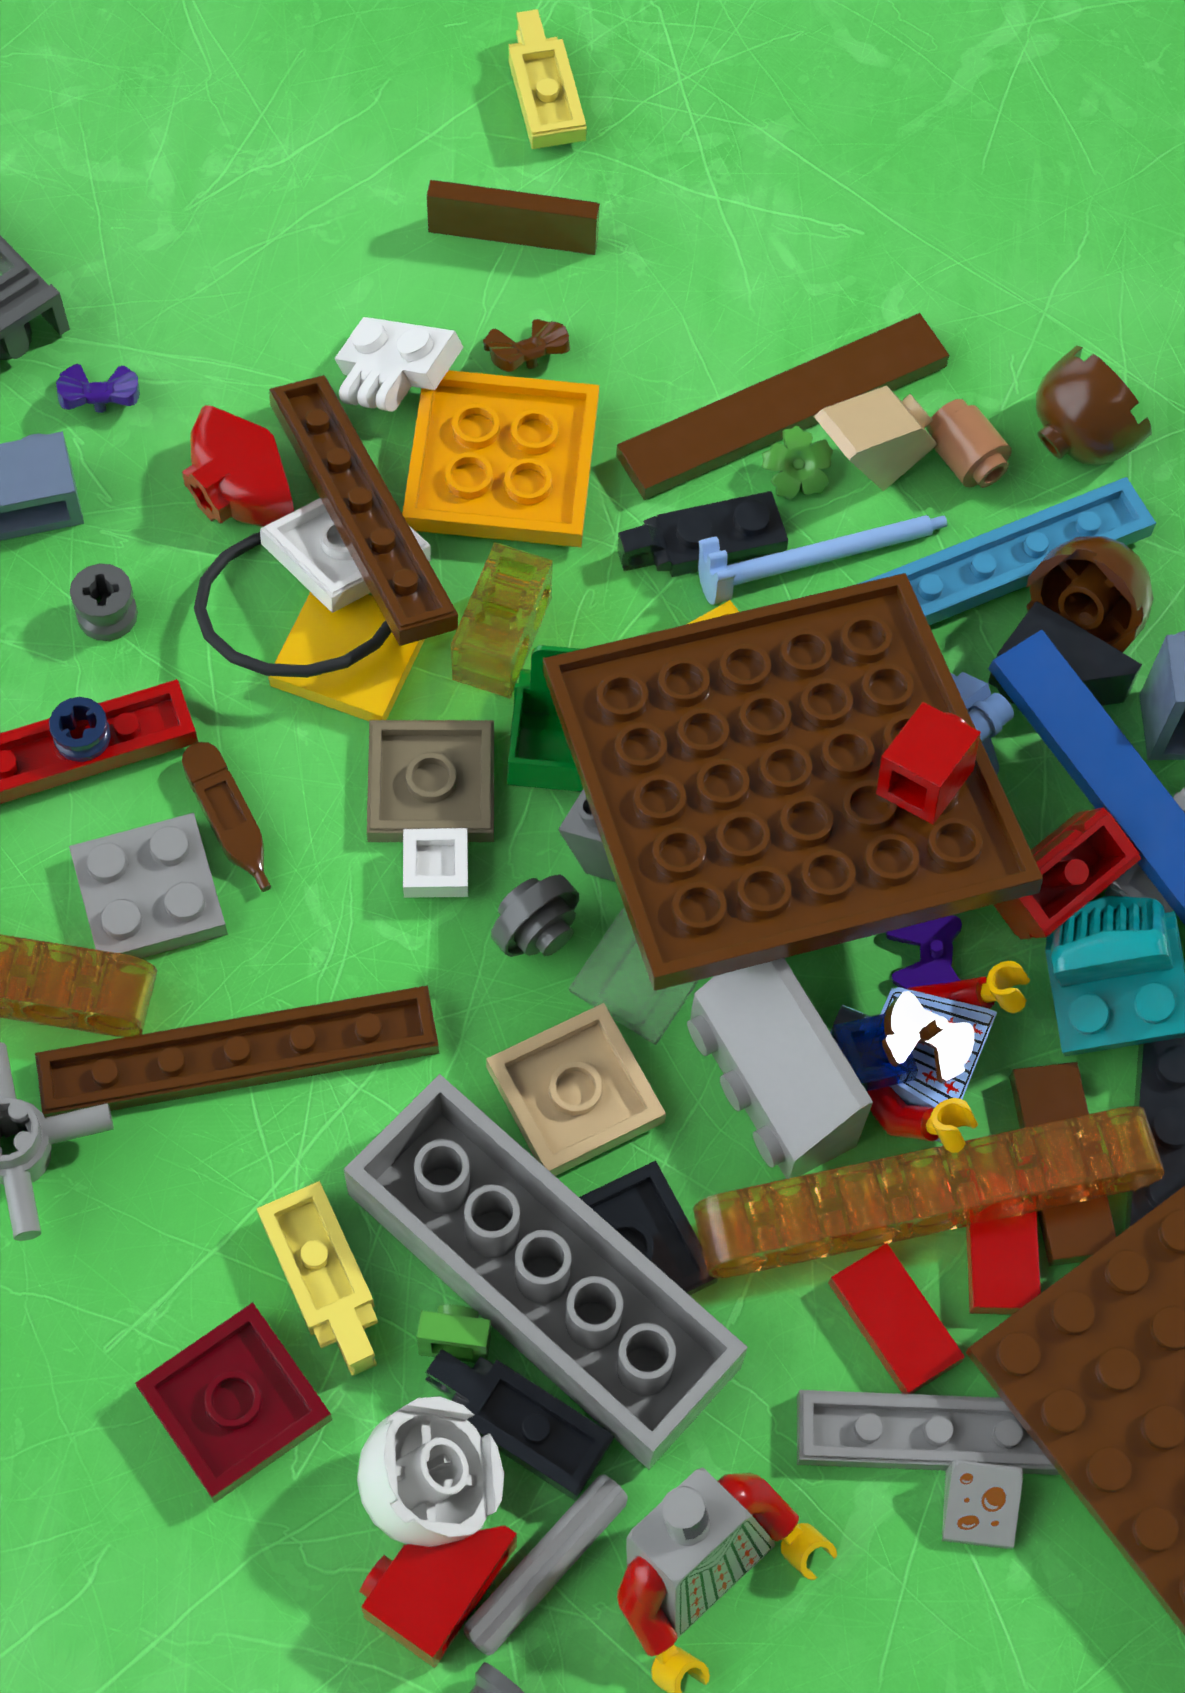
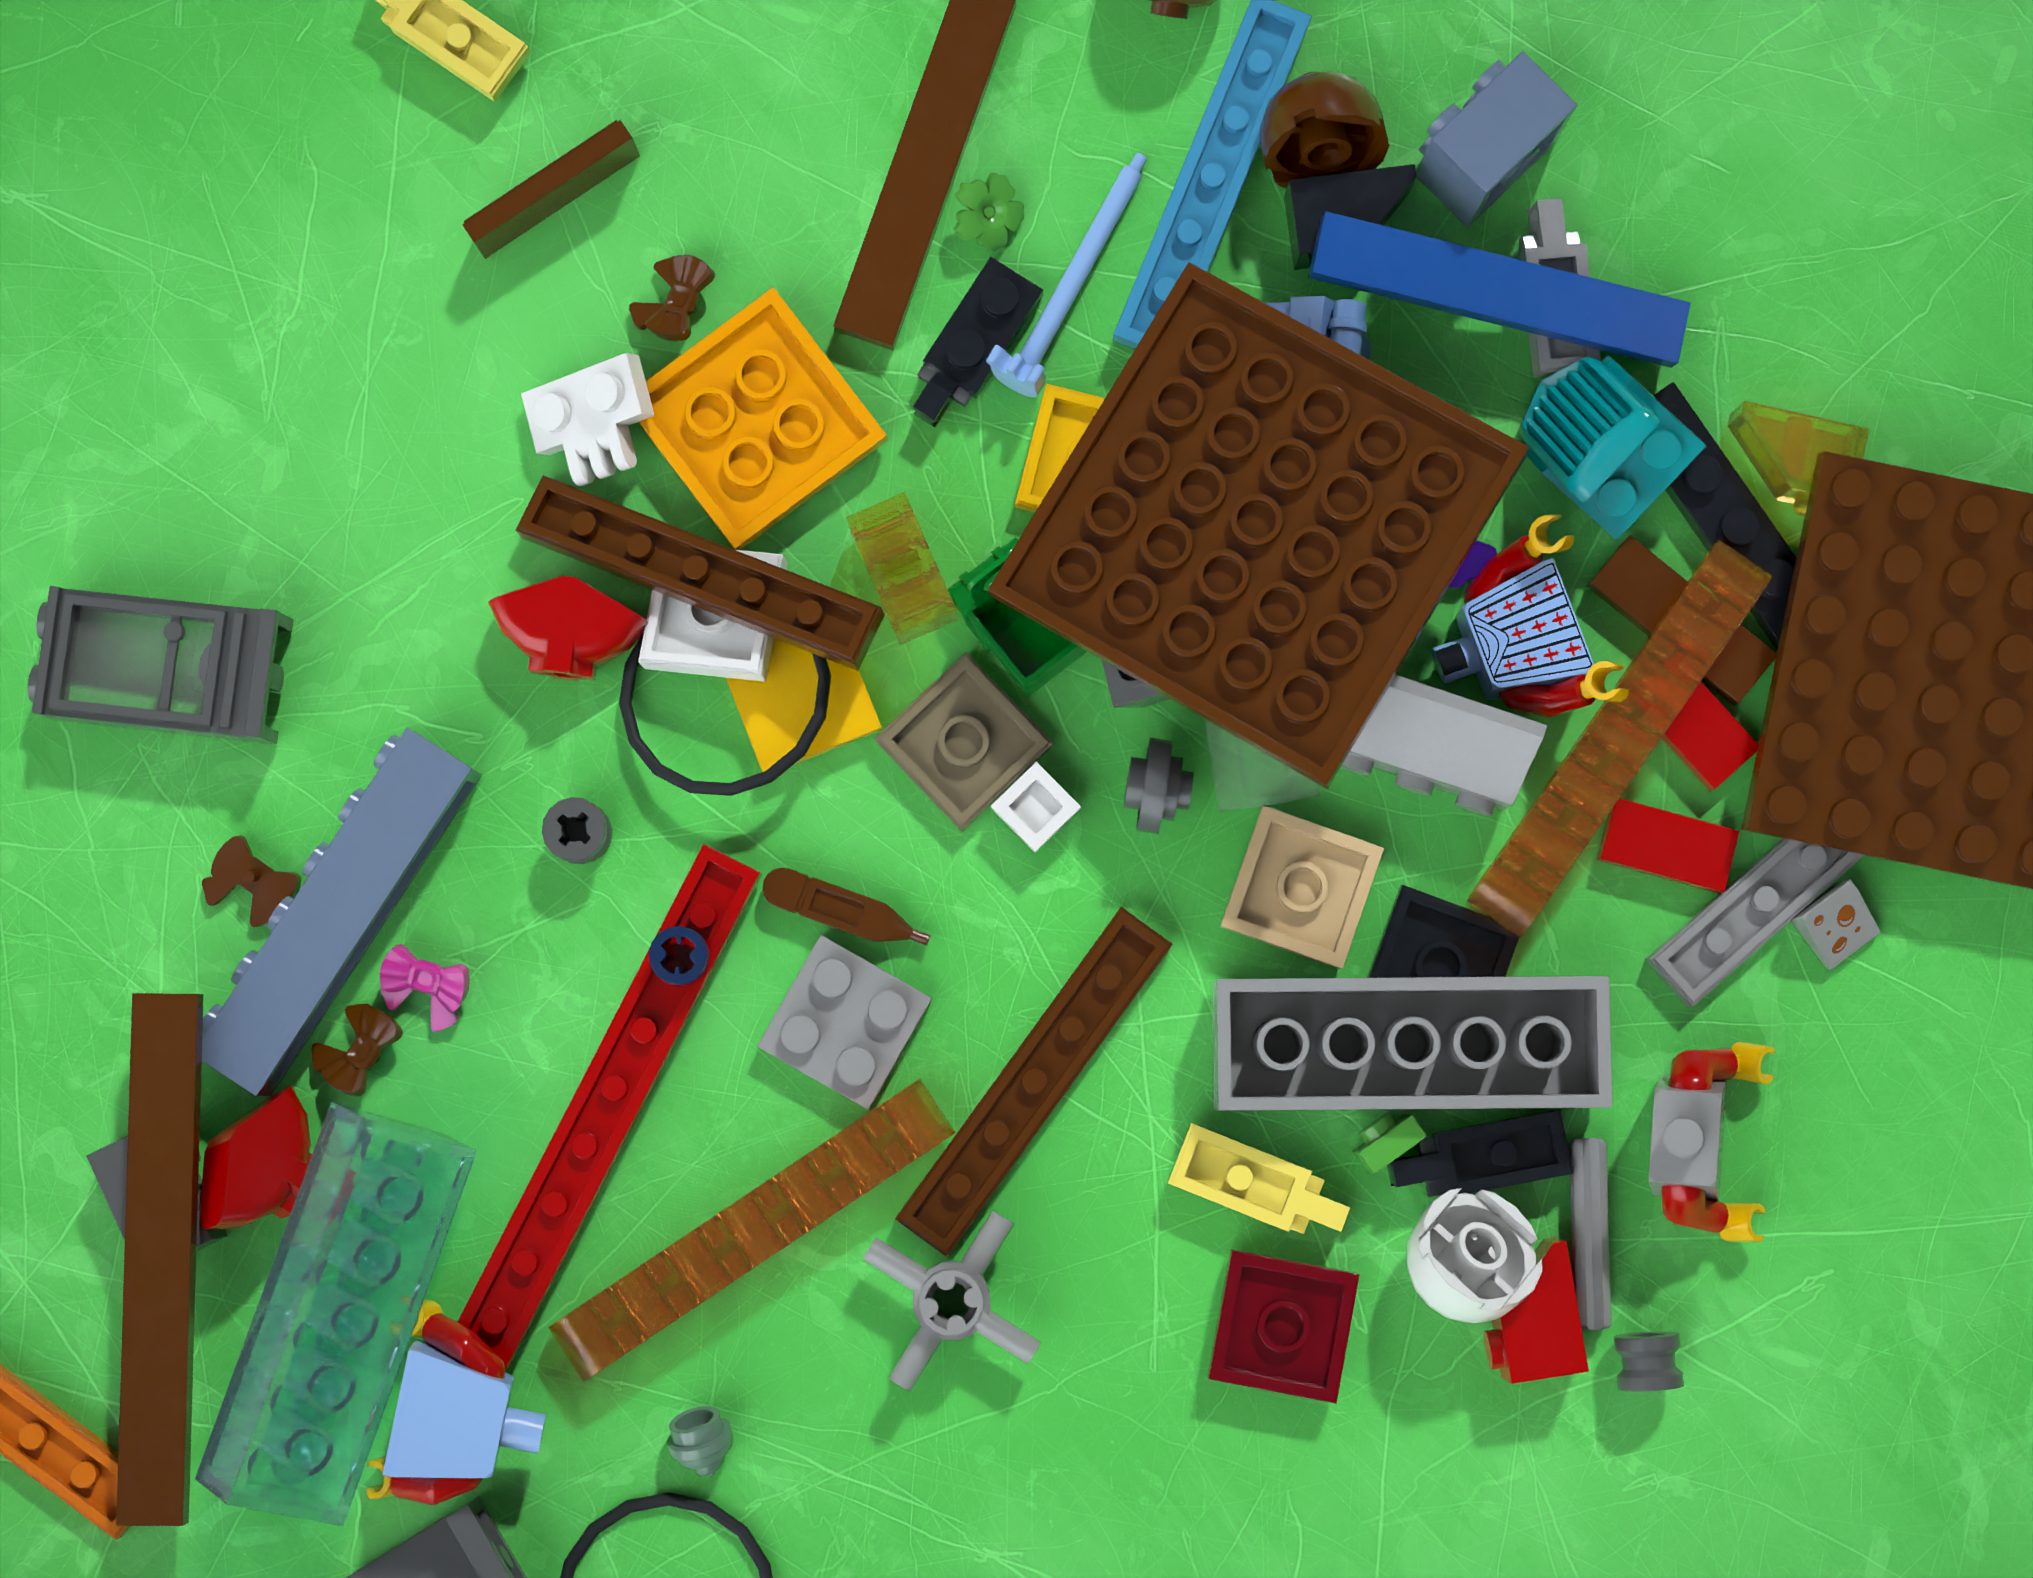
camera: 40 degrees left, 20 degrees up
(75, 389) = (366, 672): dark purple piece -> none
(863, 1049) = (1500, 673): clear blue tile -> none
(879, 433) = (1039, 137): tan slope -> none
(909, 1022) = (1511, 632): piece -> none
(928, 762) = (1371, 429): red brick -> none
(969, 444) = (1106, 72): nougat brick -> none
(1075, 867) = (1506, 382): red brick -> none

